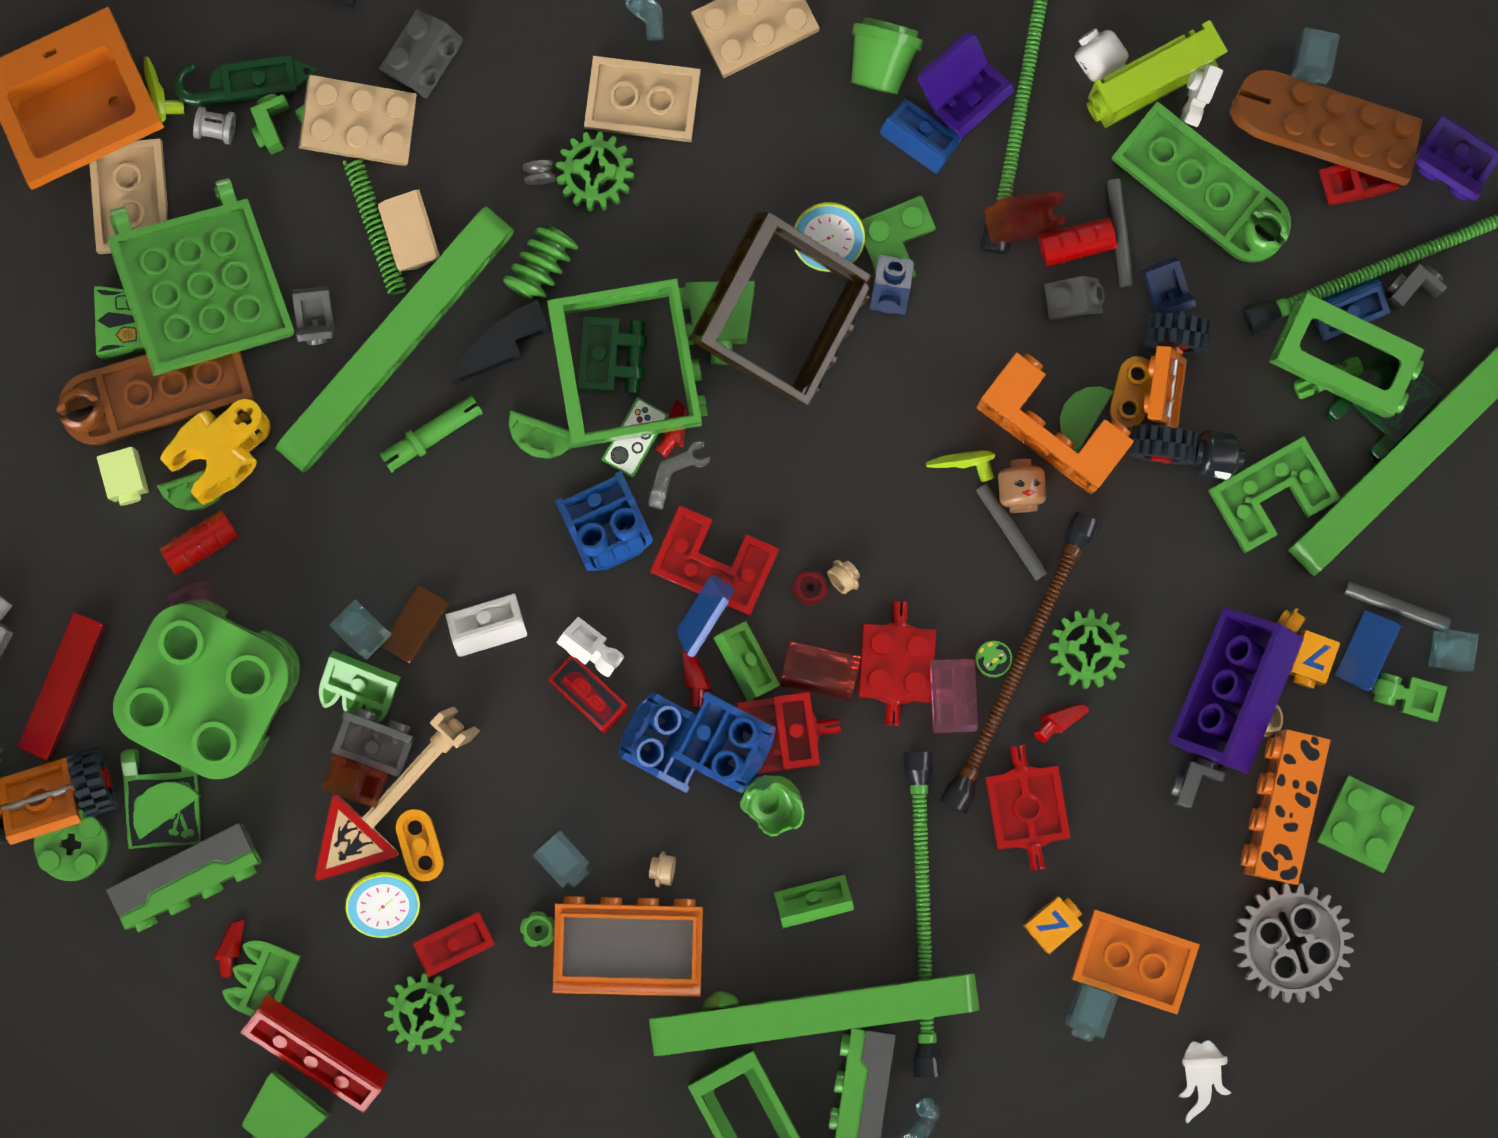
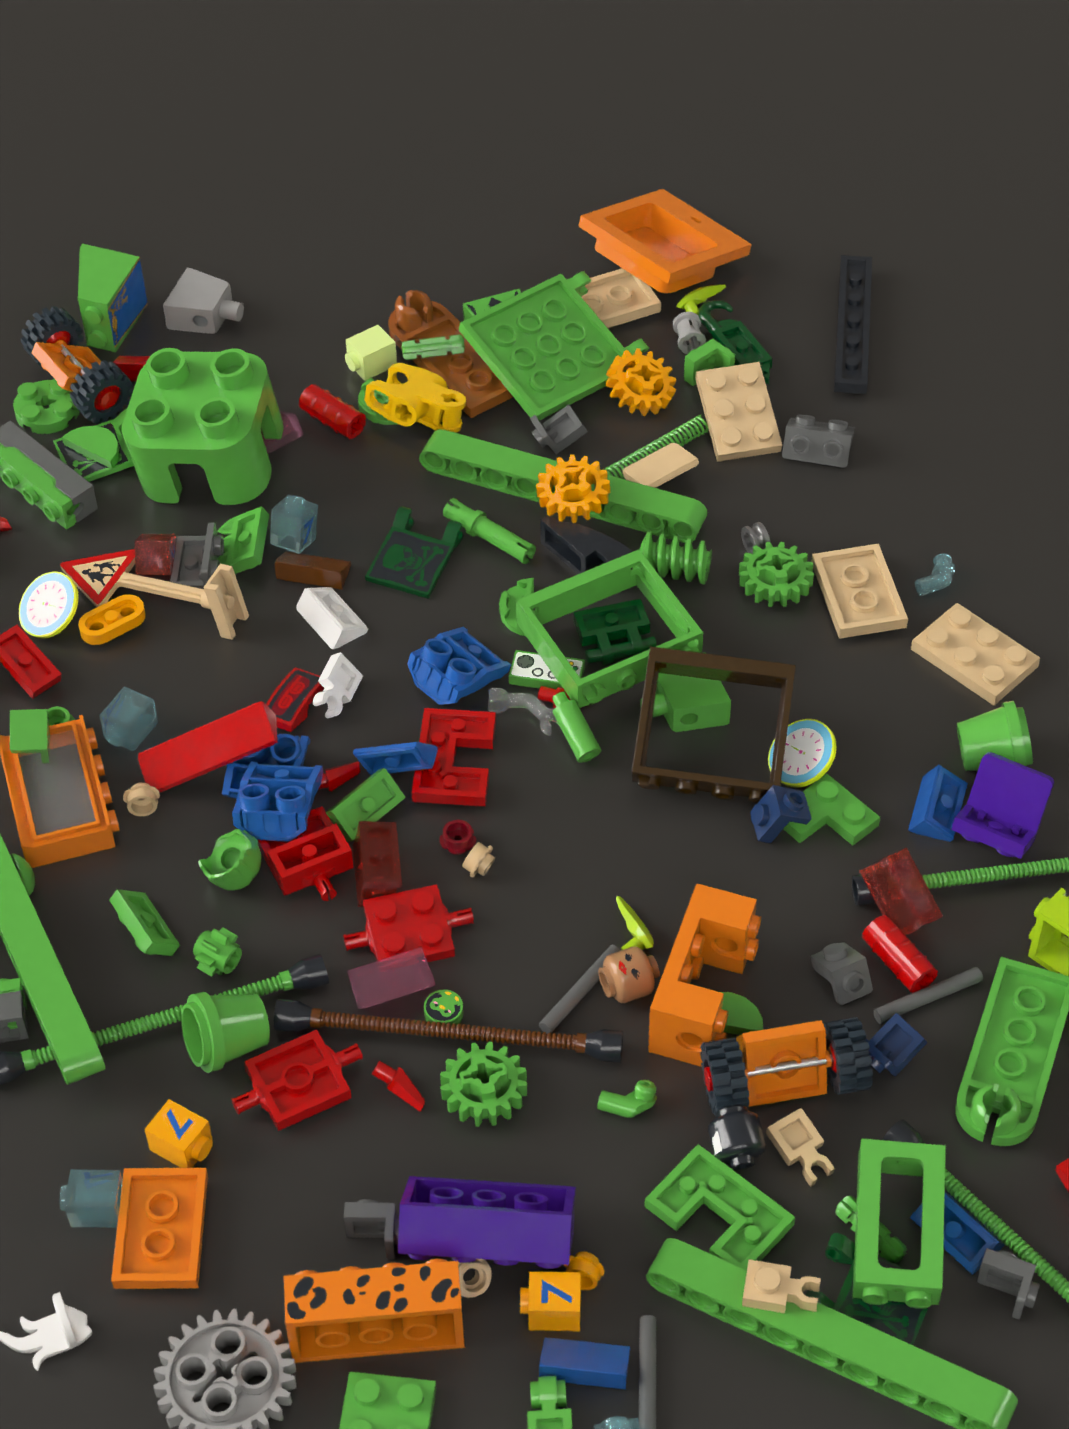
camera: 75 degrees right, 35 degrees down
(151, 408) = (433, 347): none -> bright green axle
(262, 205) = (641, 382): none -> light orange gear
(437, 523) = (413, 560): none -> flag
(447, 327) = (573, 488): none -> light orange gear
(578, 960) = (30, 732): none -> bright green panel
(646, 792) = (209, 747): none -> red slope
(725, 436) = (575, 728): none -> bright green cylinder
(872, 843) = (217, 952): none -> bright green gear
(964, 859) = (223, 1028): none -> bright green piece
(1144, 530) = (631, 1104): none -> bright green arm
(1231, 404) = (799, 1140): none -> tan plate
(1372, 482) = (770, 1287): none -> tan plate

